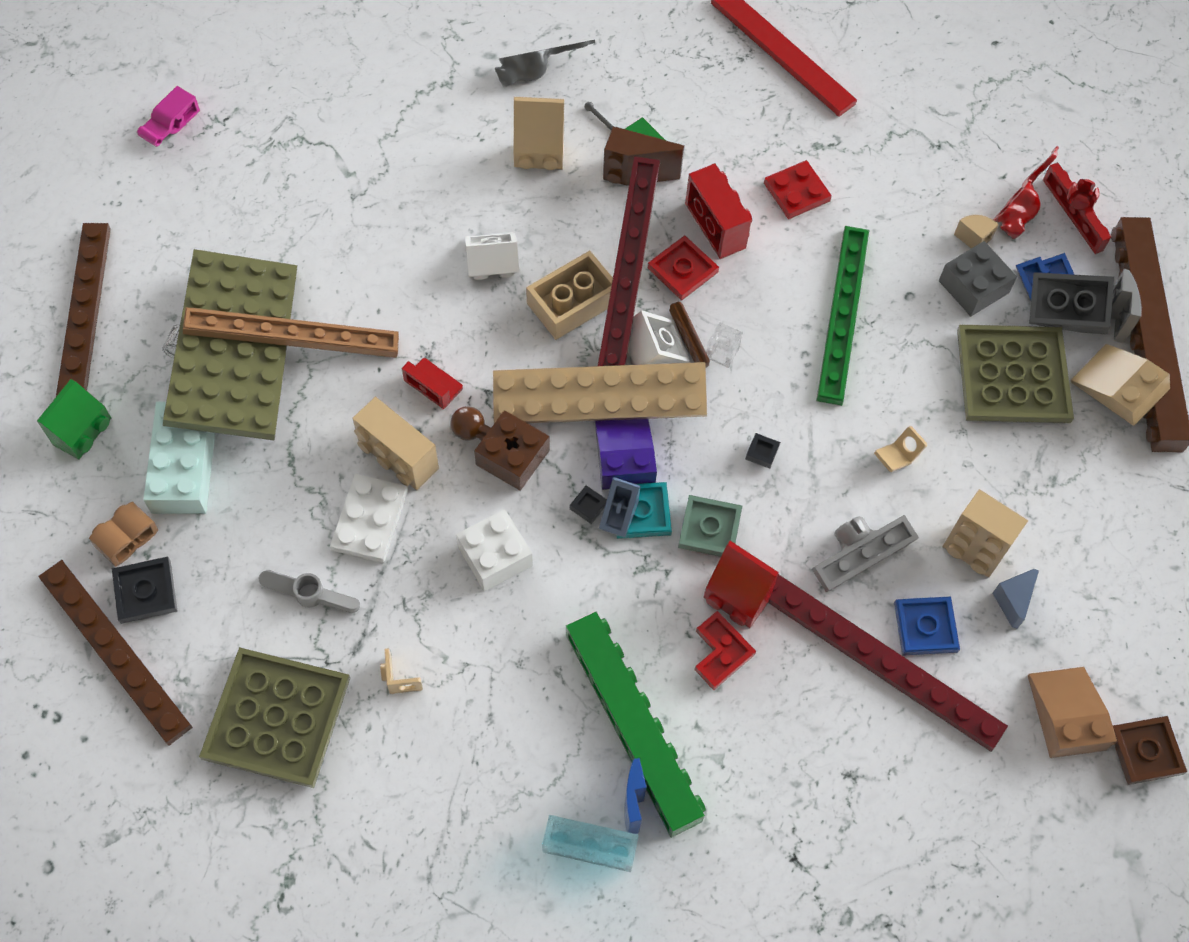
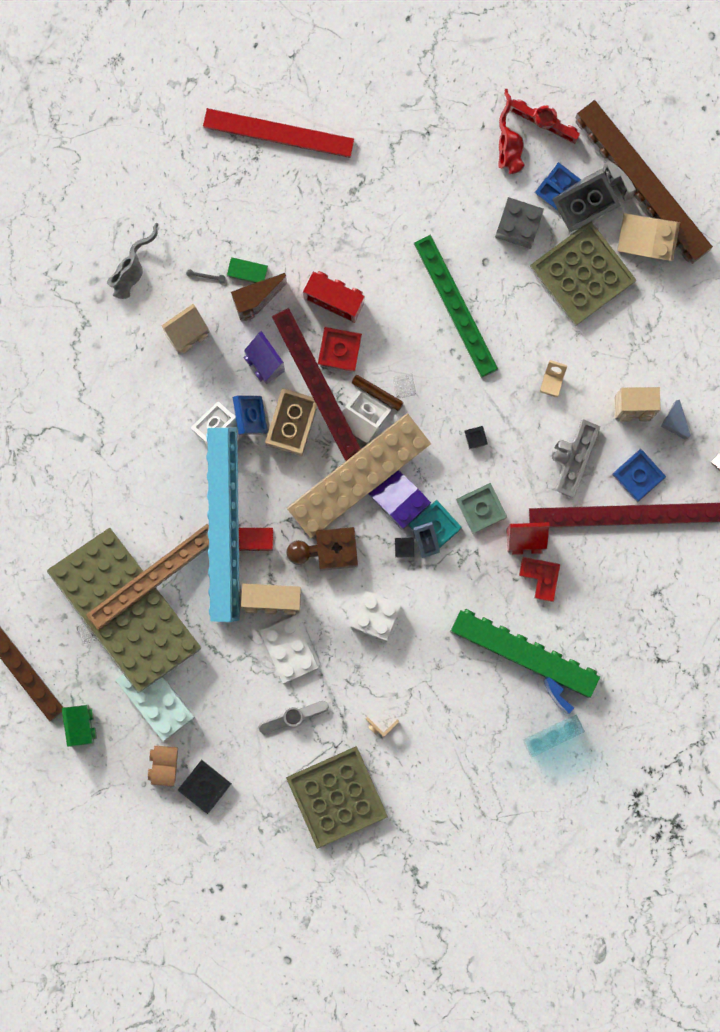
camera: 40 degrees left, 20 degrees up
(115, 653) = (217, 830): reddish brown plate -> none
(411, 330) = (223, 524): none -> medium azure brick
(534, 255) = (250, 415): none -> blue tile
(595, 215) = (264, 359): none -> dark purple slope
(797, 189) = (365, 236): red plate -> none
(975, 229) = (495, 186): tan brick -> none

